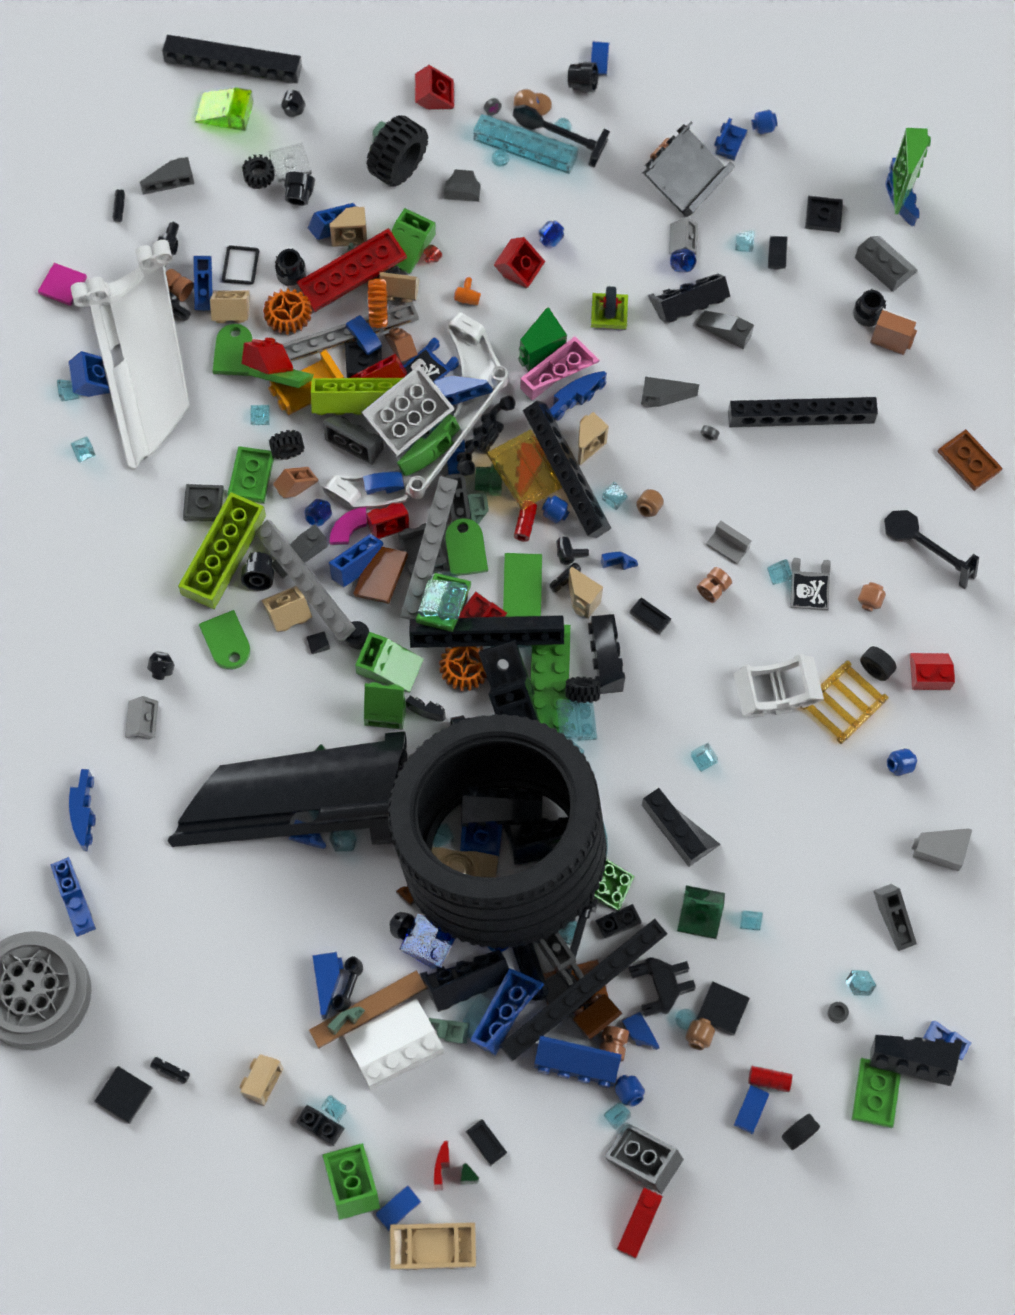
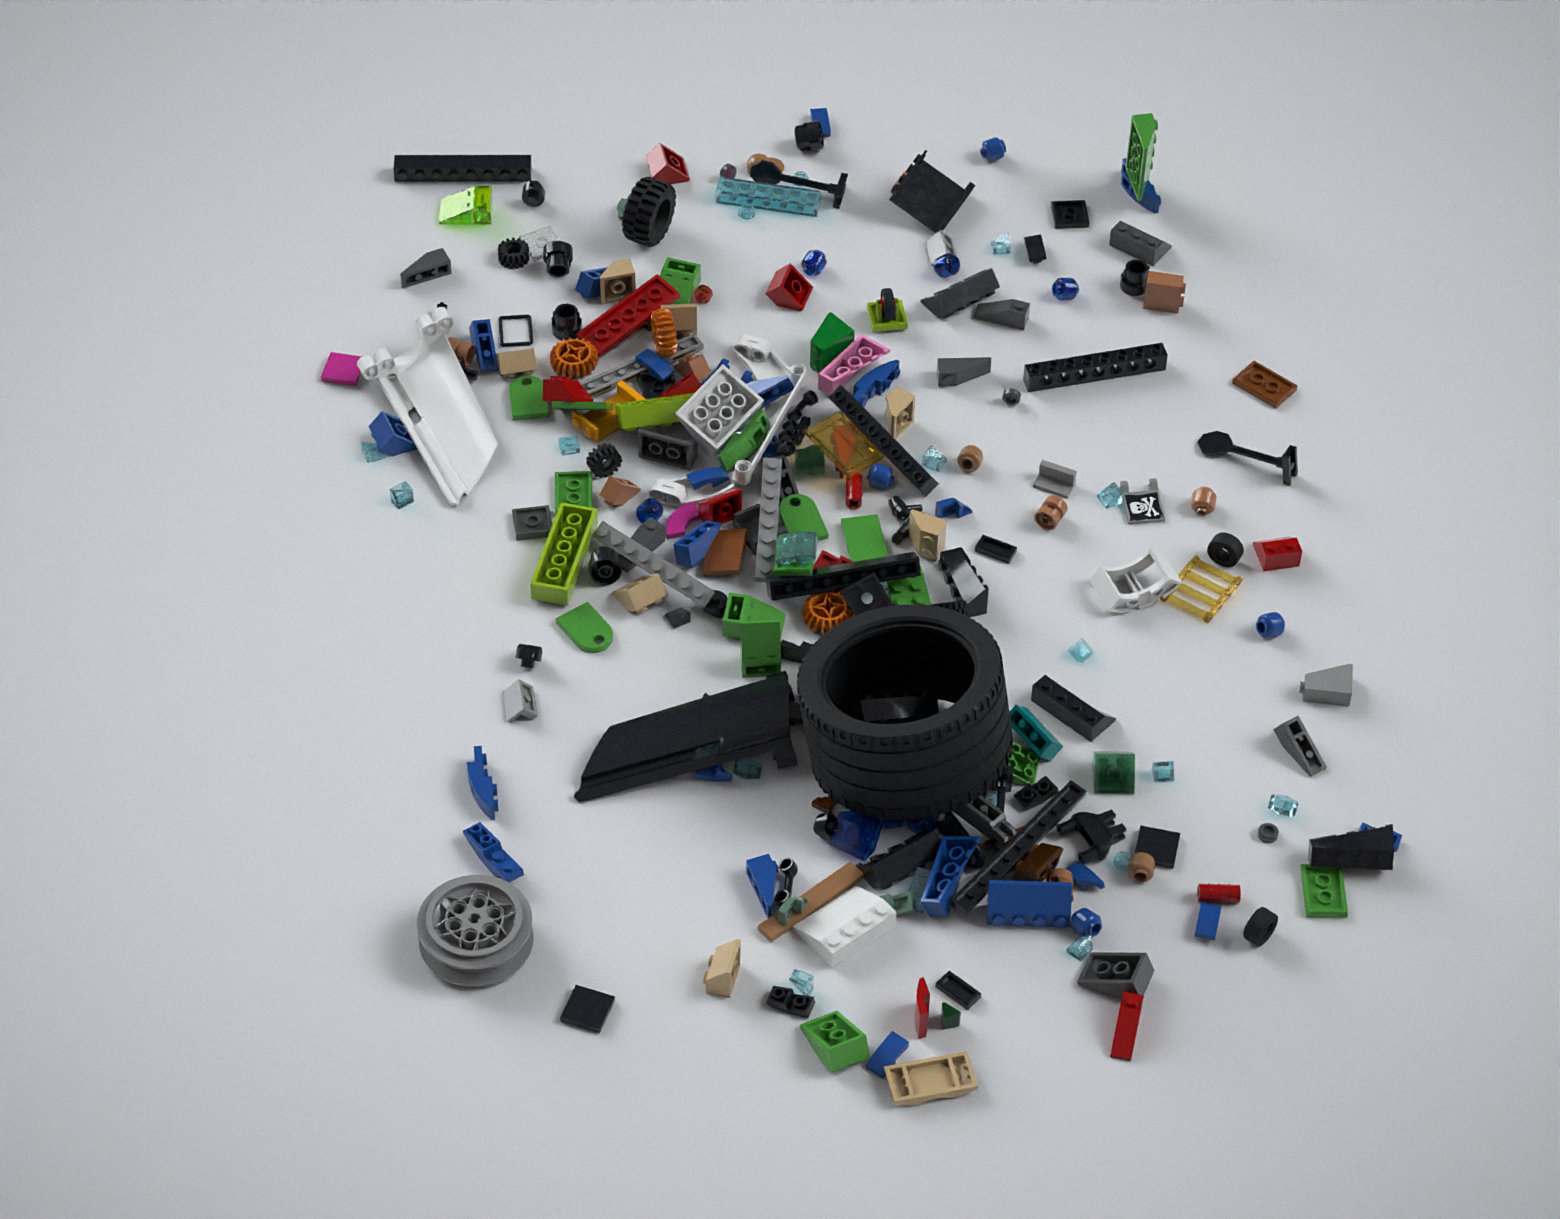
camera: 10 degrees left, 20 degrees down
(118, 205) = (382, 299): black axle -> none
(170, 1070) = (629, 981): black axle -> none
(462, 186) = (716, 238): dark grey slope -> none
(465, 294) = (745, 322): orange piece -> none
(478, 506) = (805, 484): sand green slope -> none
(631, 852) = (1034, 733): none -> teal brick
(730, 140) = (963, 169): blue bracket -> none
(795, 308) = (1065, 288): none -> clear blue head

